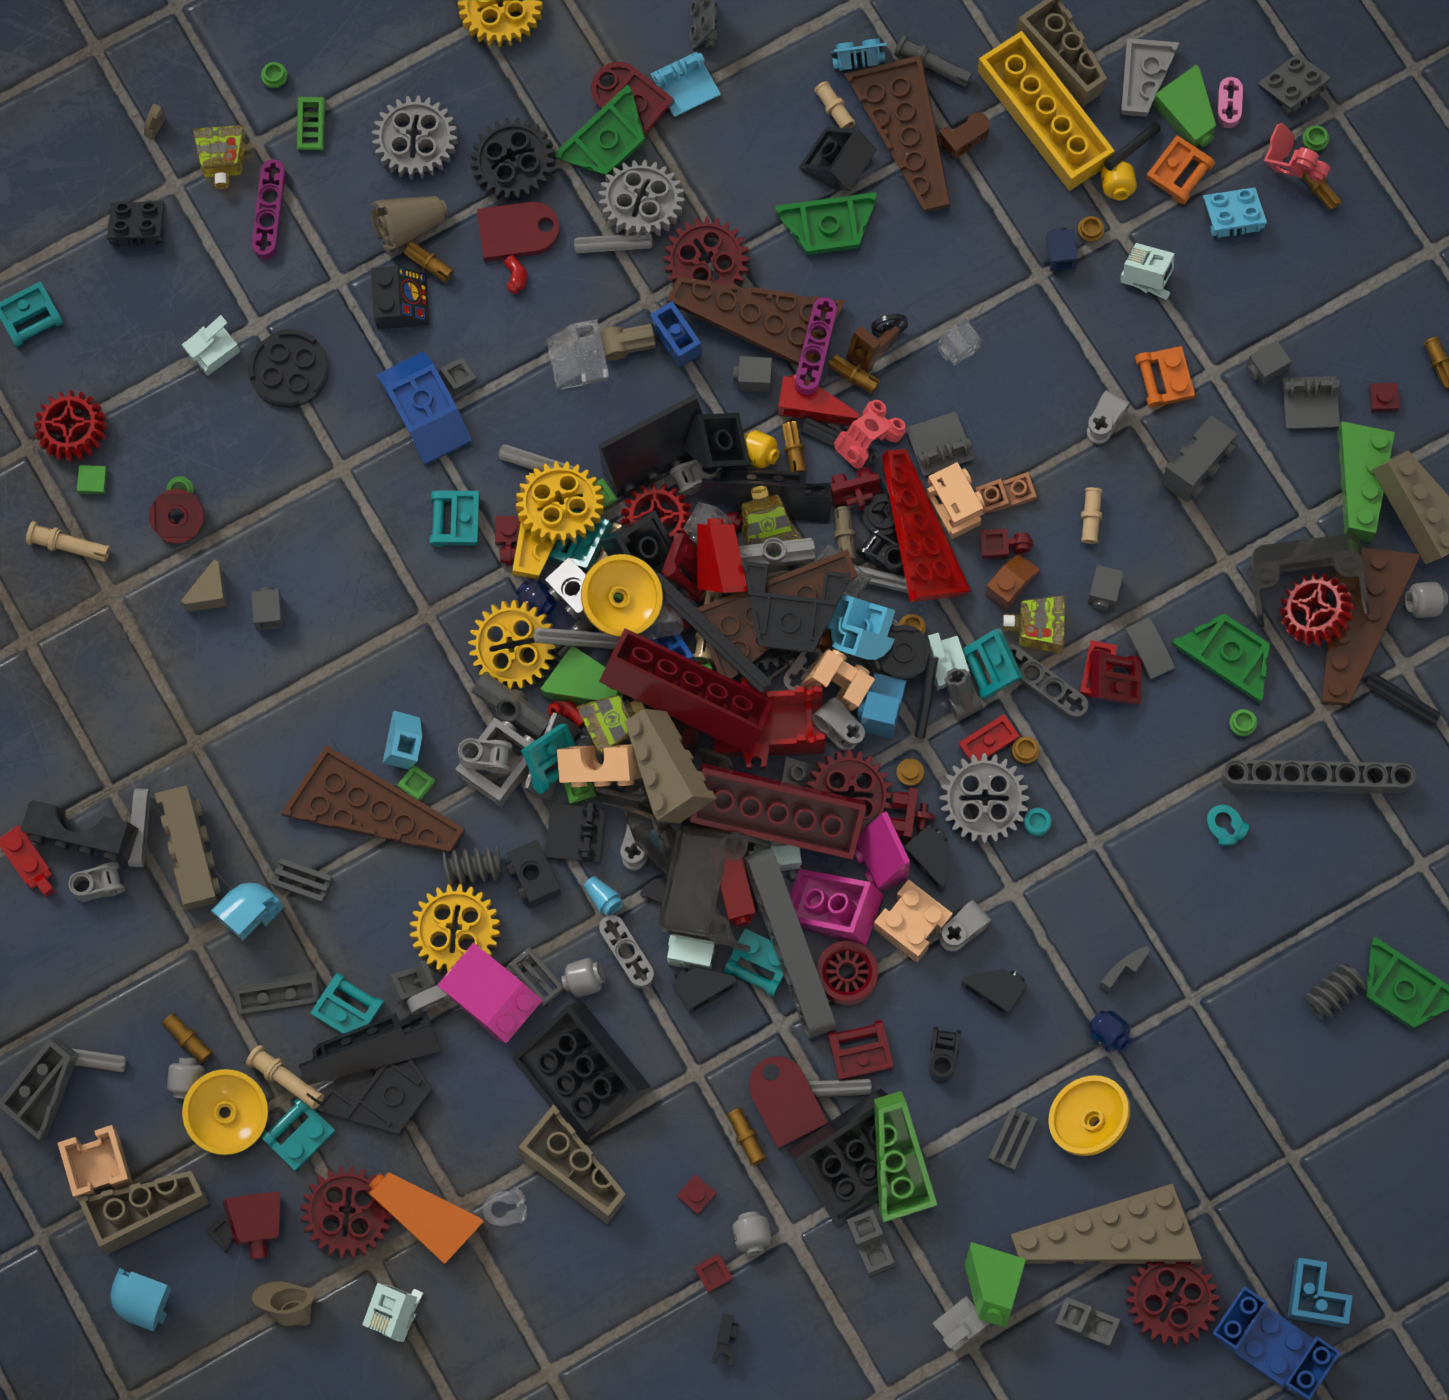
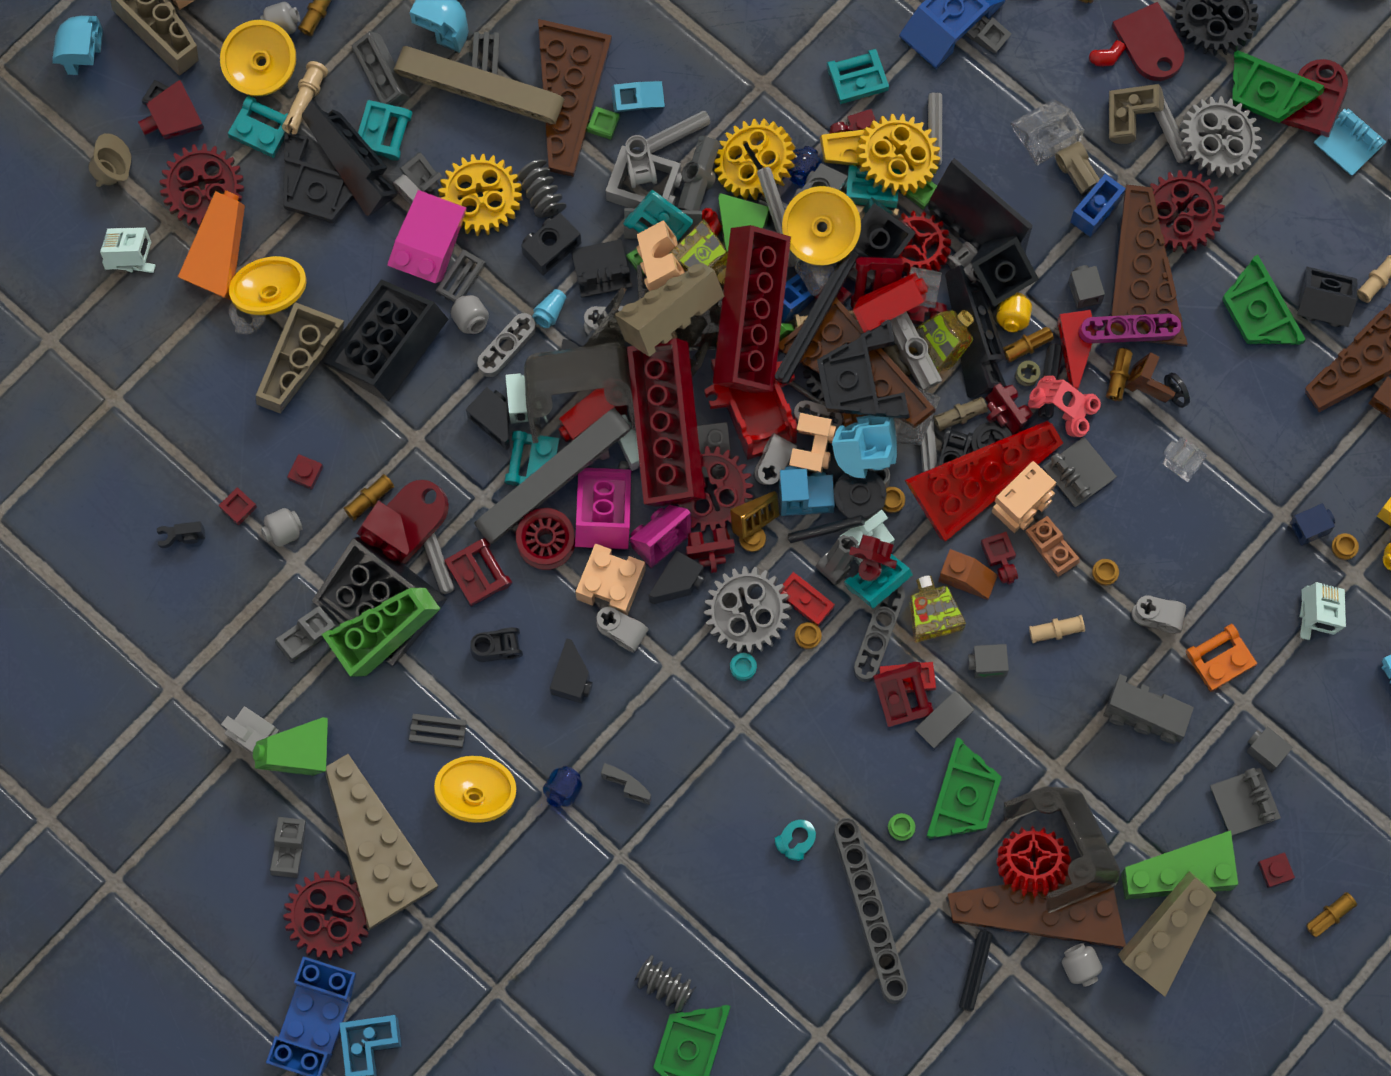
camera: 70 degrees right, 0 degrees up
(335, 893) = (479, 85): none -> dark tan beam
(452, 713) = (678, 131): none -> light grey axle
(474, 1168) = (267, 285): none -> yellow dish
(579, 275) = (1126, 104): none -> dark tan brick
(796, 1124) = (385, 531): none -> dark red slope
(826, 466) = (1021, 368): none -> olive bush
(890, 761) = (747, 510): none -> pearl gold slope
(976, 657) = (873, 554): none -> dark red hips
(1048, 453) = (1105, 572): none -> pearl gold plate

